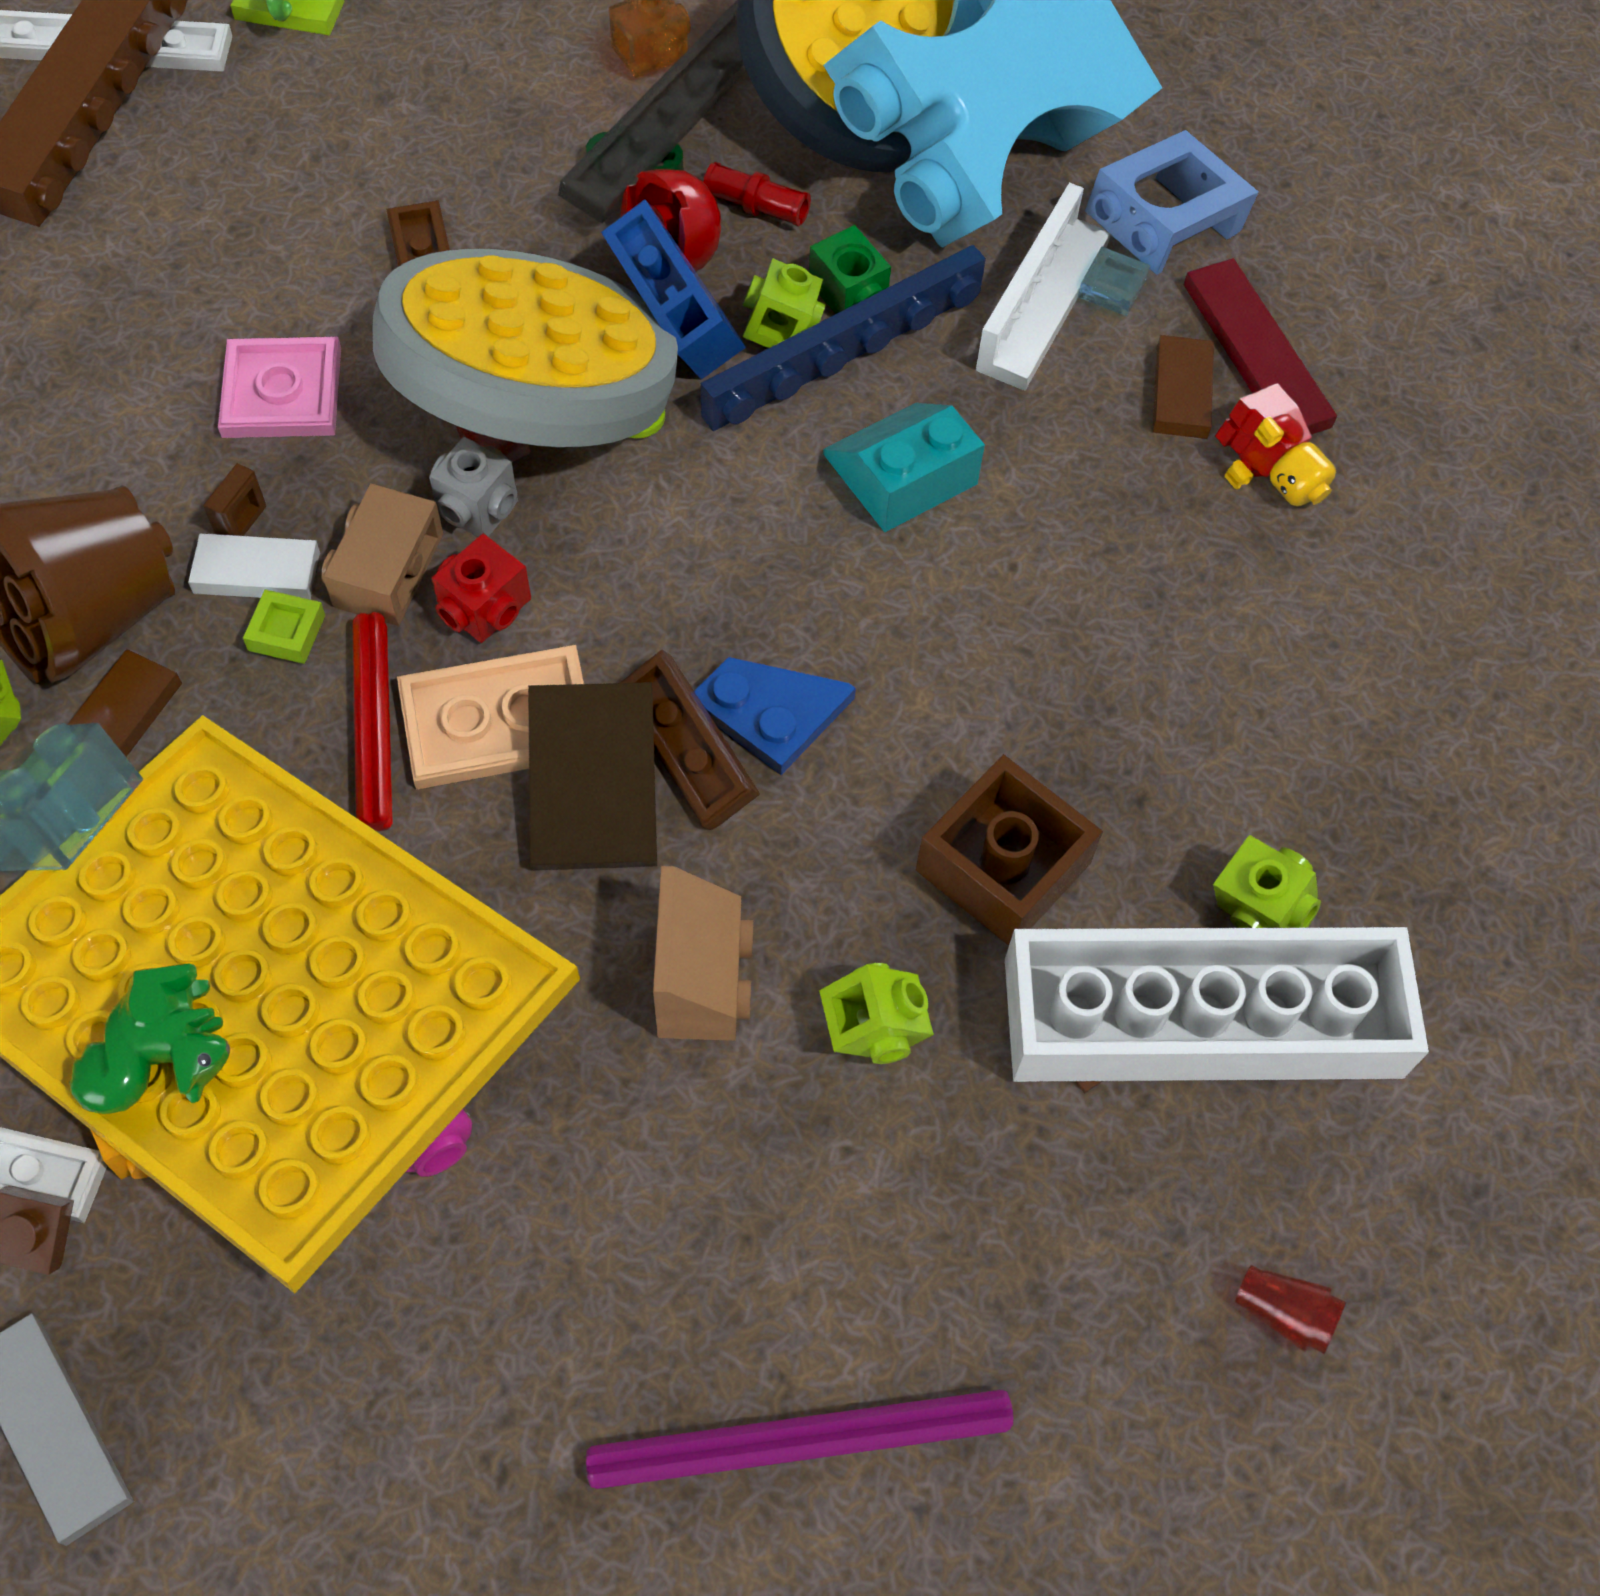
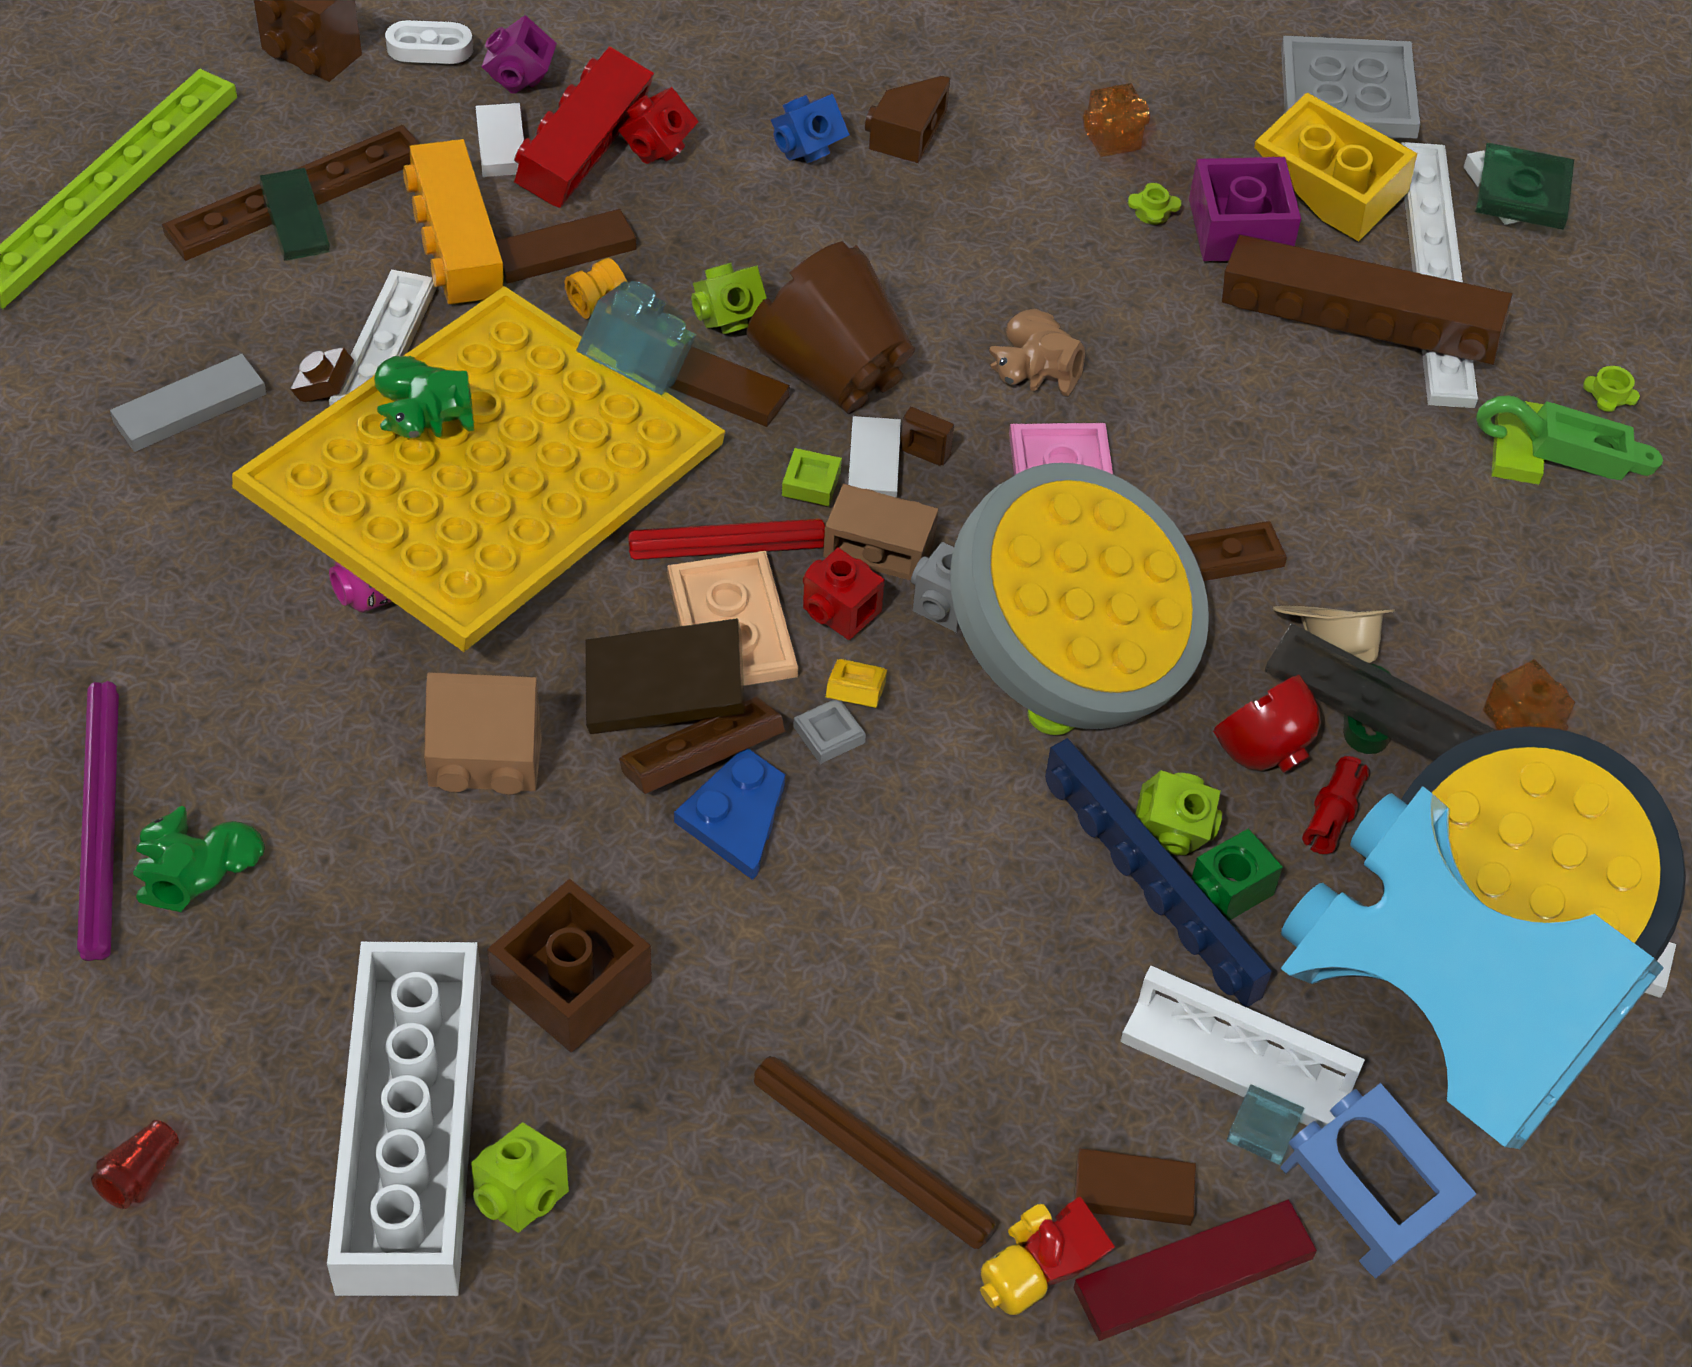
camera: 90 degrees right, 10 degrees down
(107, 381) = (1039, 352): none -> medium nougat animal
(541, 160) = (1349, 630): none -> tan piece
(600, 587) = (856, 683): none -> yellow tile
(659, 619) = (829, 730): none -> light grey tile
(673, 290) = (1171, 719): blue slope -> none
(876, 1013) = (426, 844): lime brick -> none
(881, 1302) = (187, 866): none -> green animal
(909, 462) = (1007, 917): teal slope -> none
(1172, 592) = (875, 1152): none -> reddish brown axle

